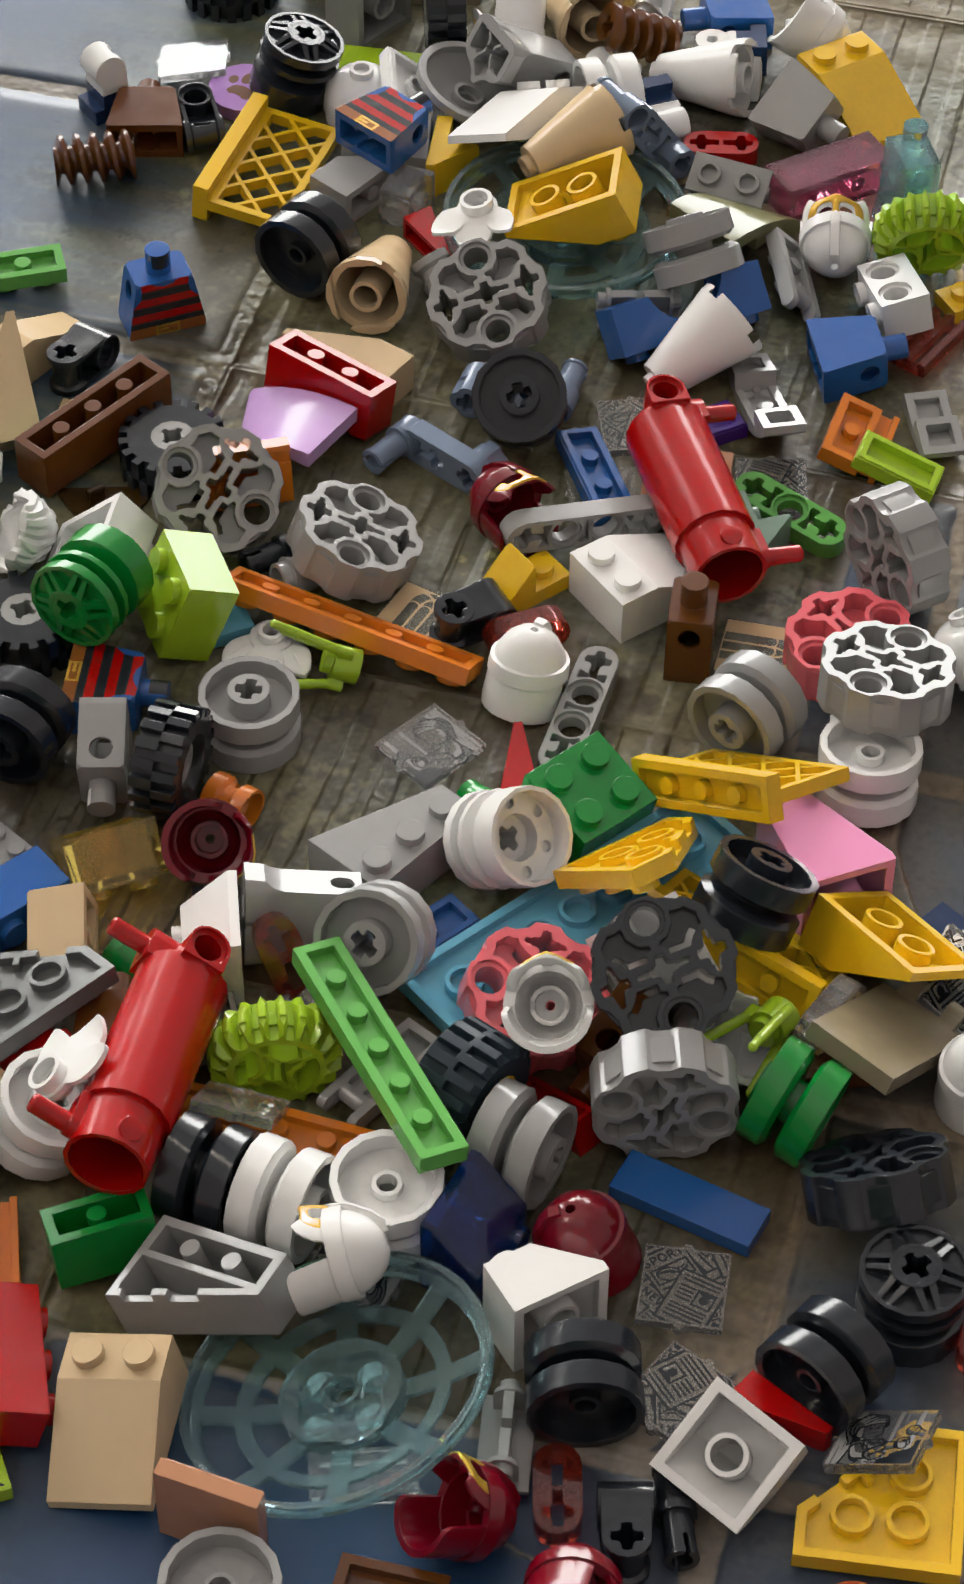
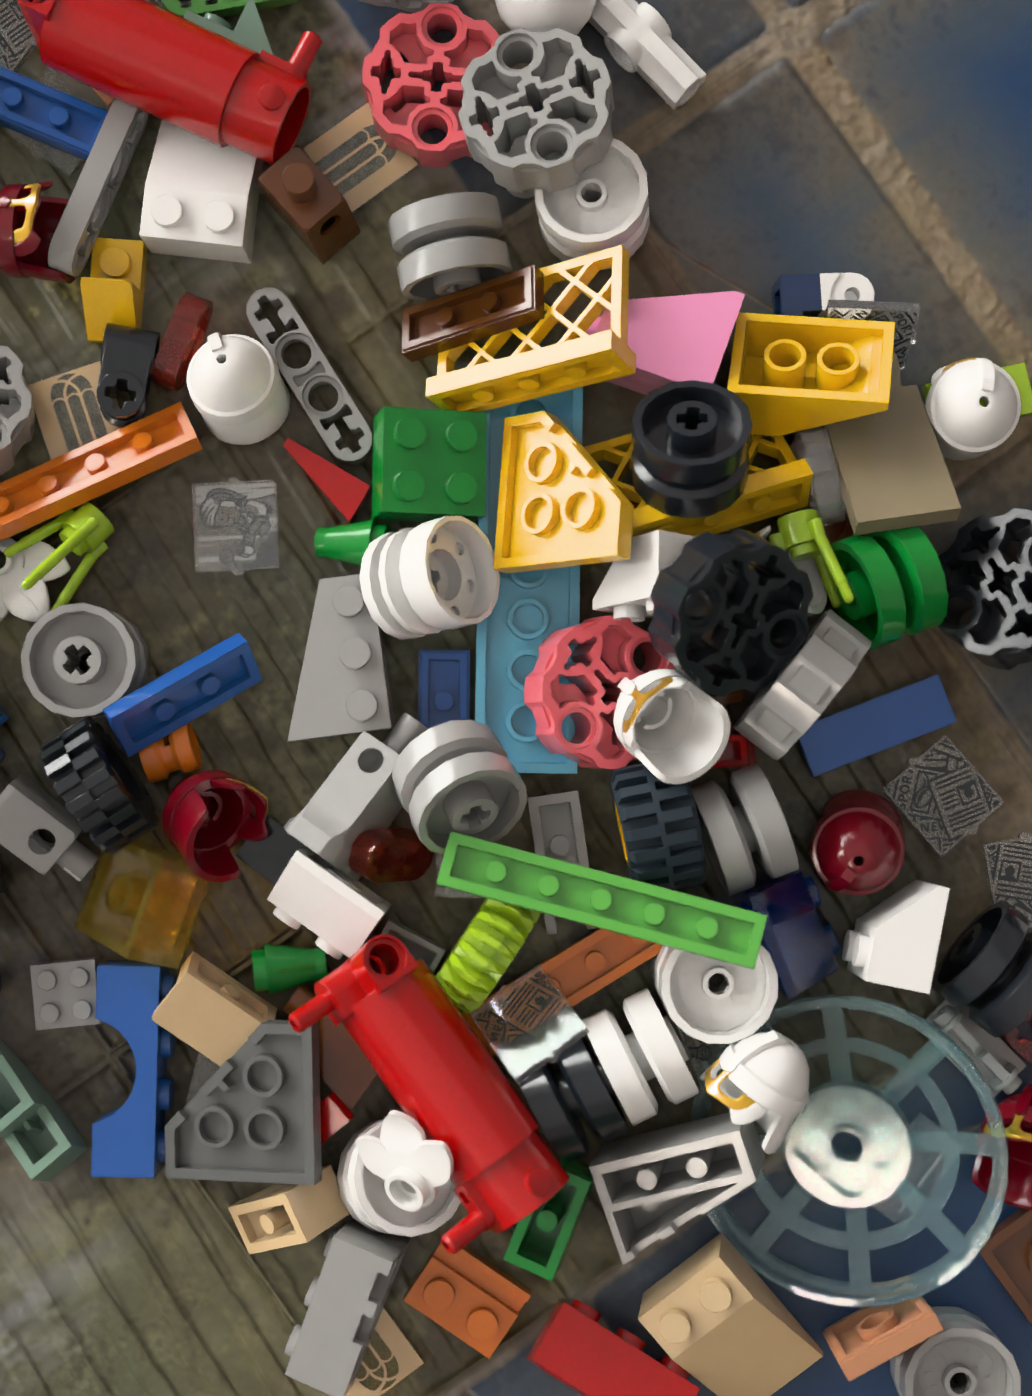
camera: 50 degrees left, 40 degrees up
(281, 772) = (183, 694): none -> blue plate
(719, 749) = (473, 313): none -> reddish brown tile

